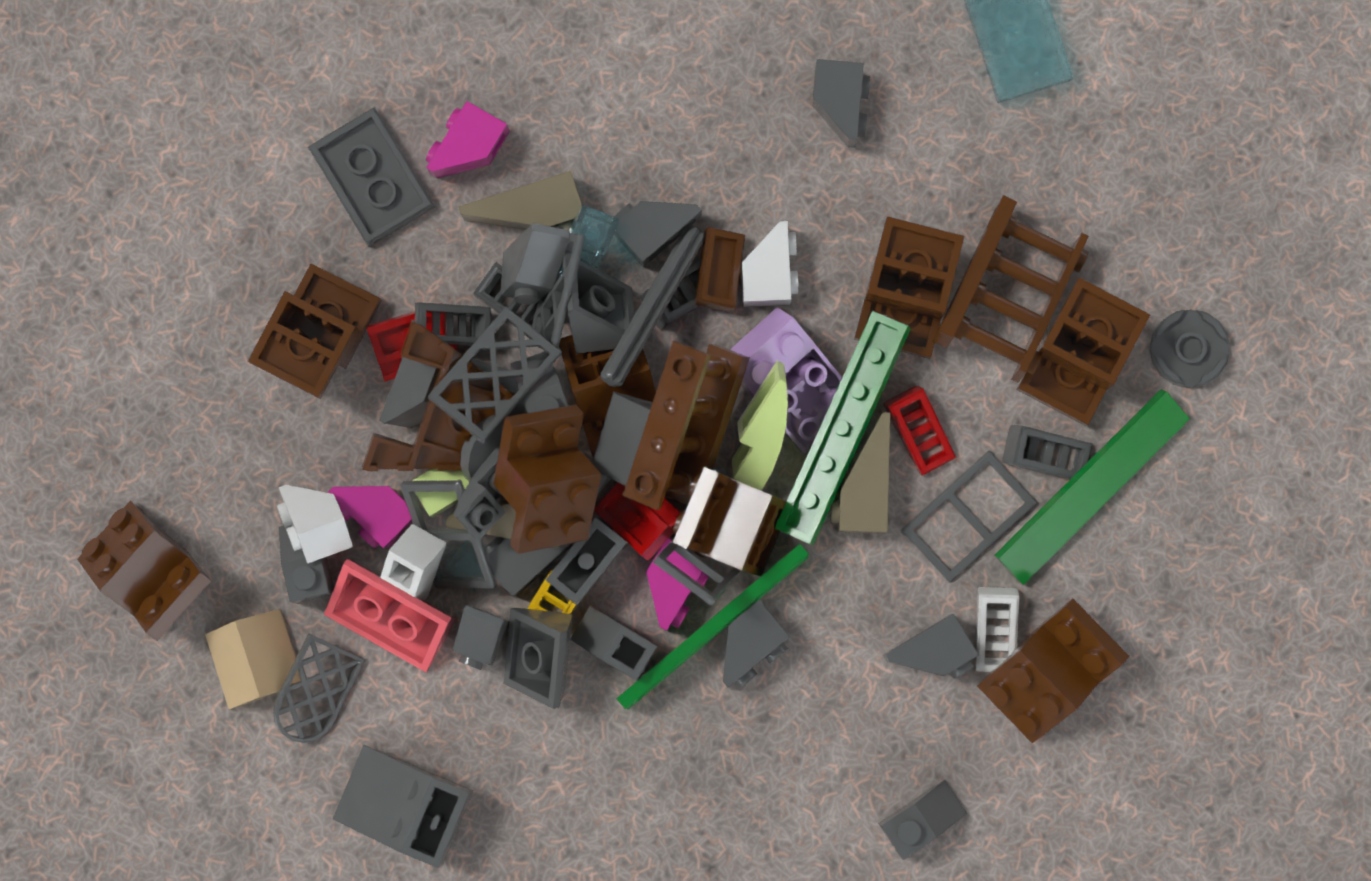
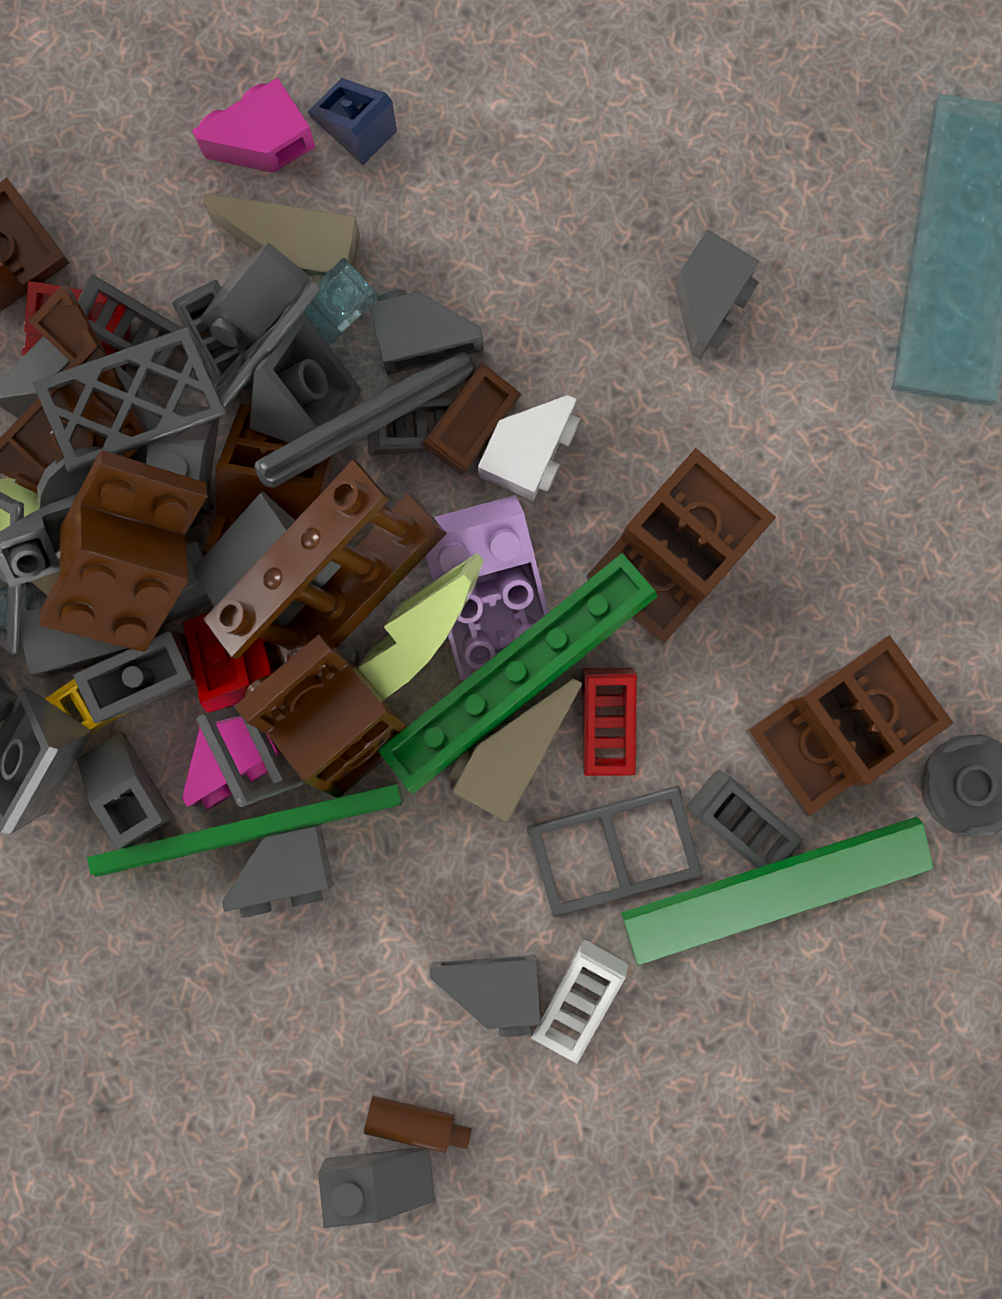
camera: 20 degrees right, 0 degrees up
(371, 177) = (131, 118): dark grey tile -> none
(528, 98) = (356, 118): none -> dark blue slope
(928, 768) = (414, 1125): none -> reddish brown cylinder
(974, 292) = (792, 561): reddish brown fence -> none
(1053, 671) = (621, 1089): reddish brown bracket -> none

